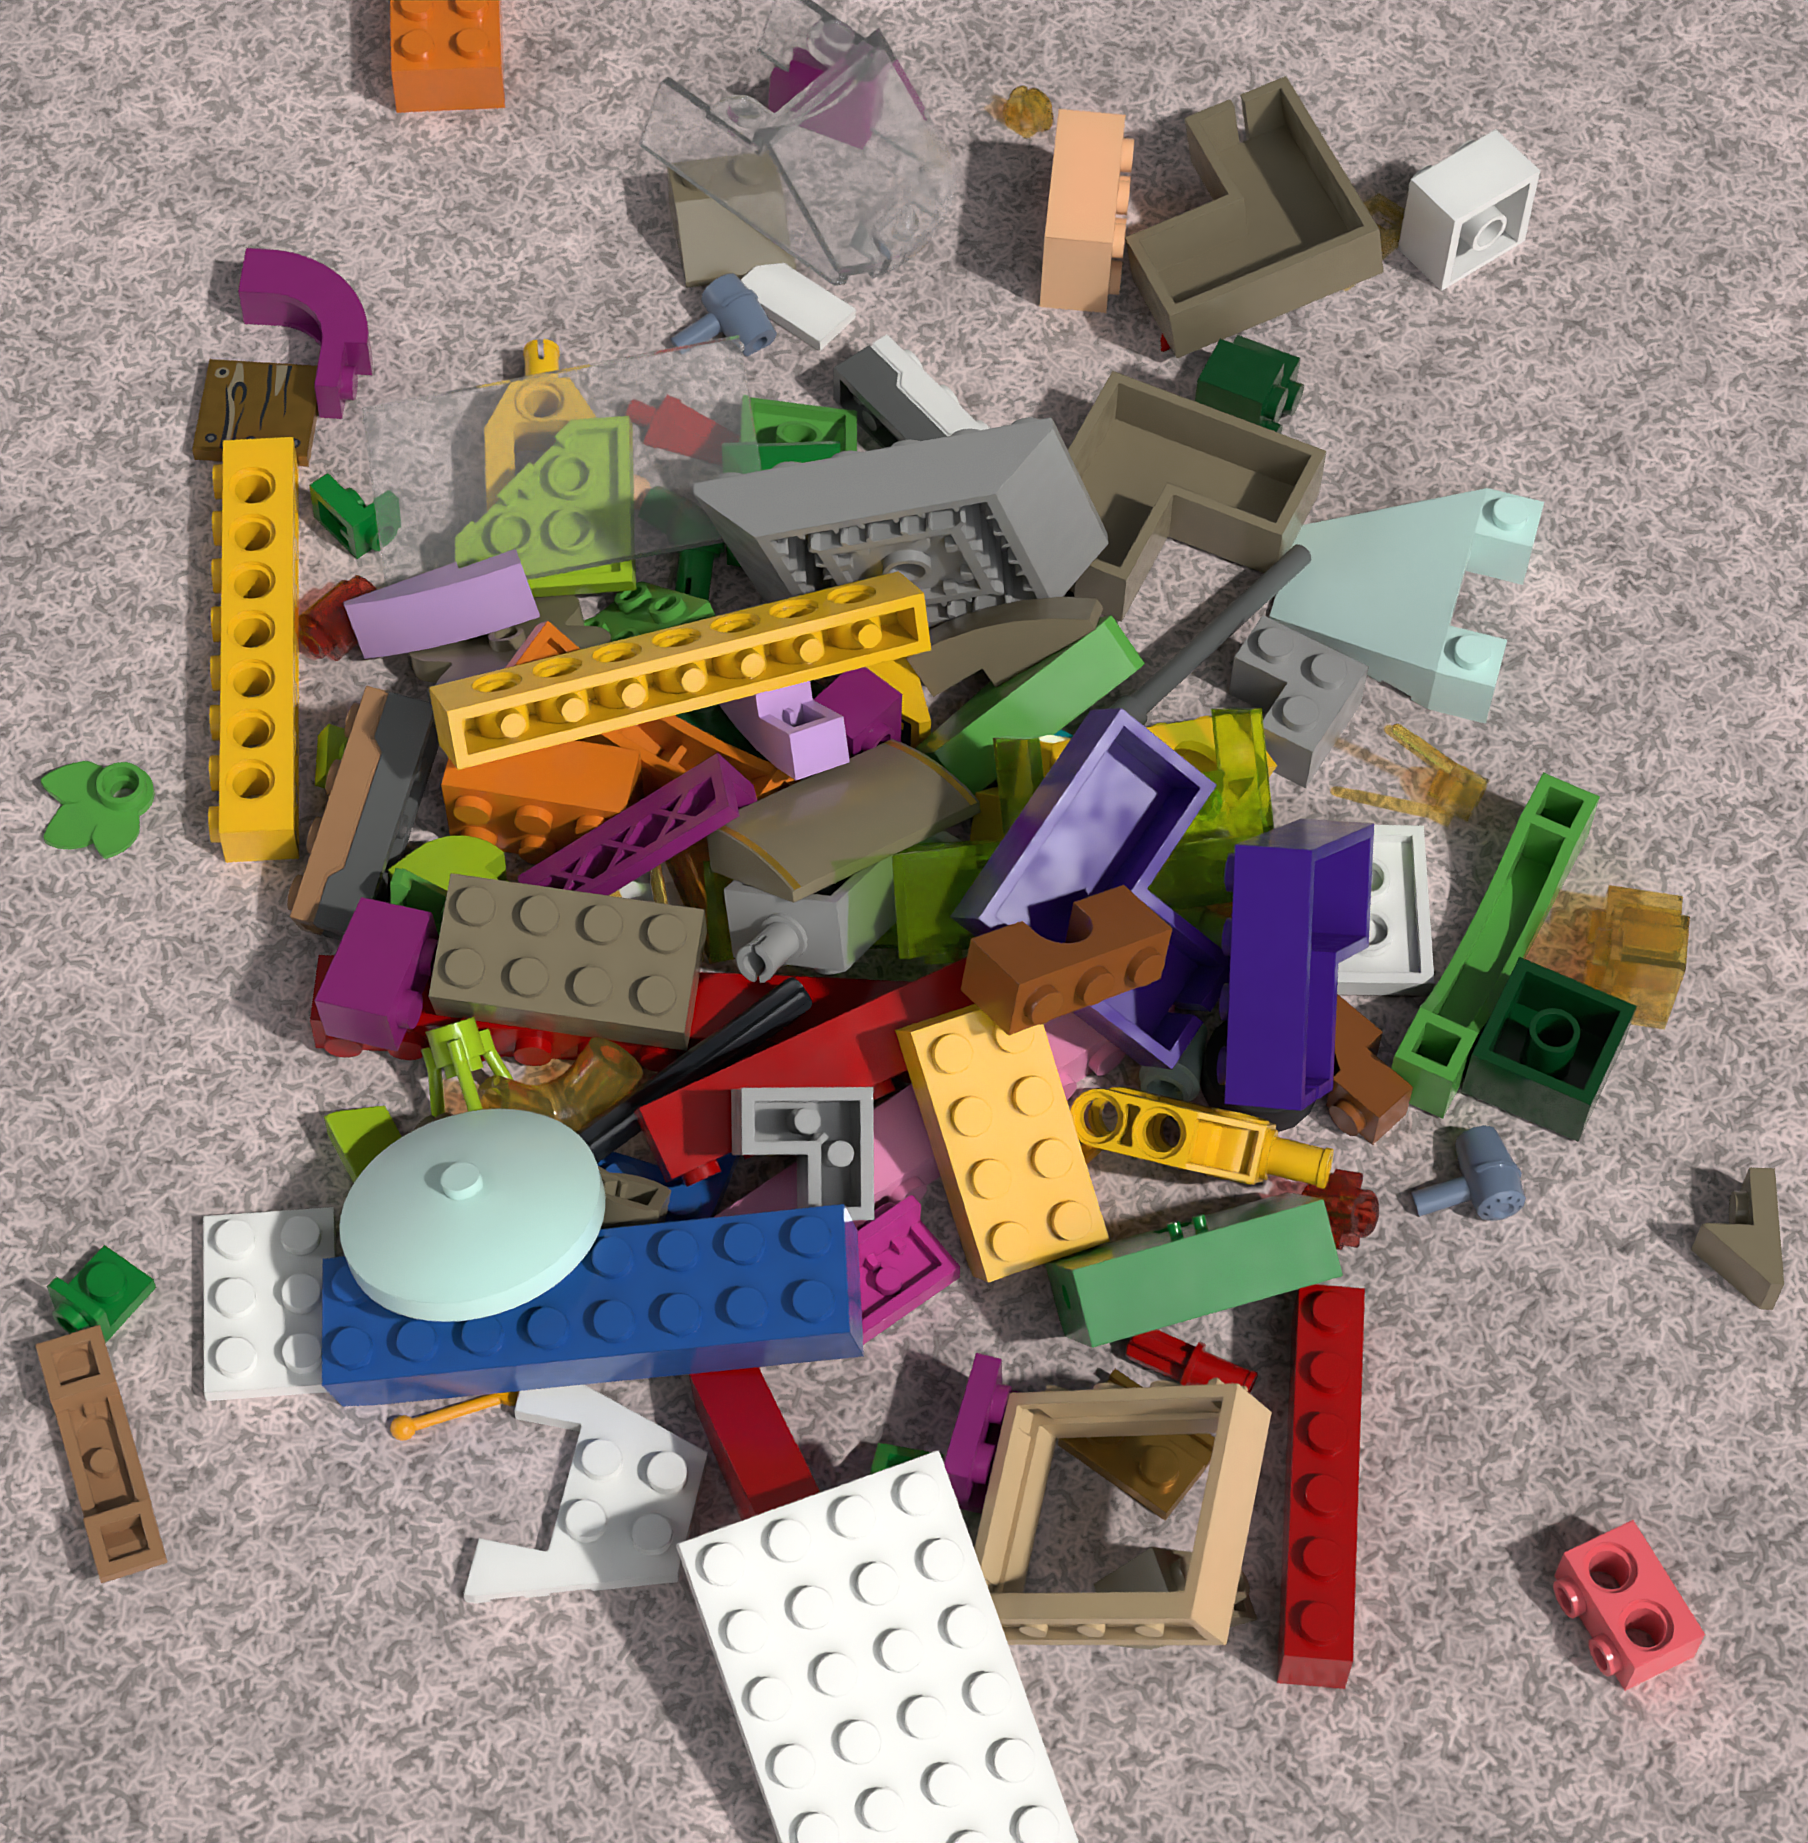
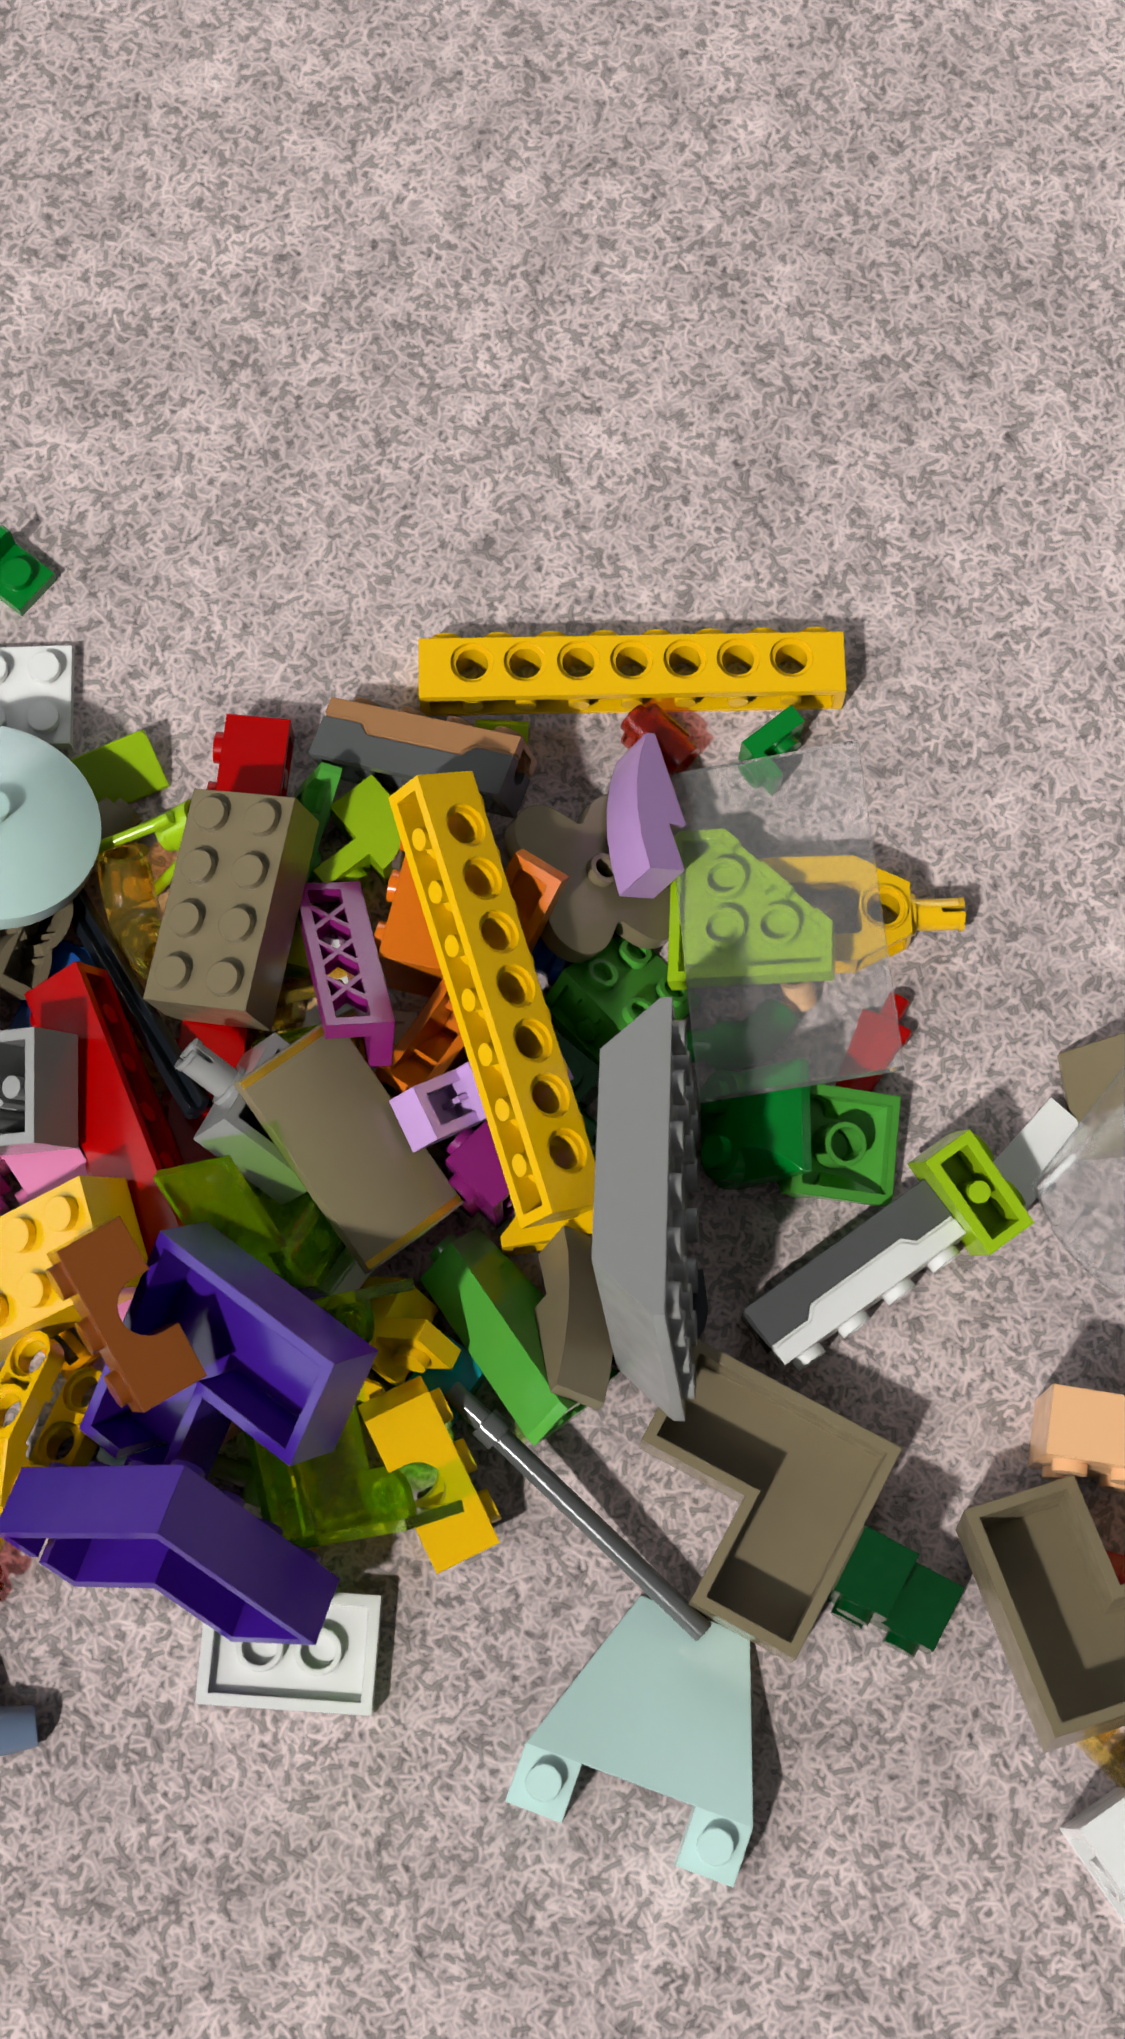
camera: 95 degrees right, 15 degrees up
(89, 809) = (473, 549): bright green plate -> none
(256, 403) = (901, 672): pearl gold tile -> none
(316, 300) = (1005, 730): magenta arch -> none
(379, 974) = (237, 753): magenta brick -> none
(732, 311) = (1012, 1095): sand blue piece -> none
(840, 325) = (973, 1191): none -> lime brick
(1303, 690) = (527, 1621): light grey brick -> none
(1366, 1091) = (88, 1620): dark orange slope -> none
(1453, 787) = (418, 1756): clear yellow plant -> none
(1516, 904) = (226, 1765): bright green arch -> none
(1548, 1048) = (104, 1804): dark green brick -> none
(1638, 951) = (204, 1909): clear yellow brick -> none

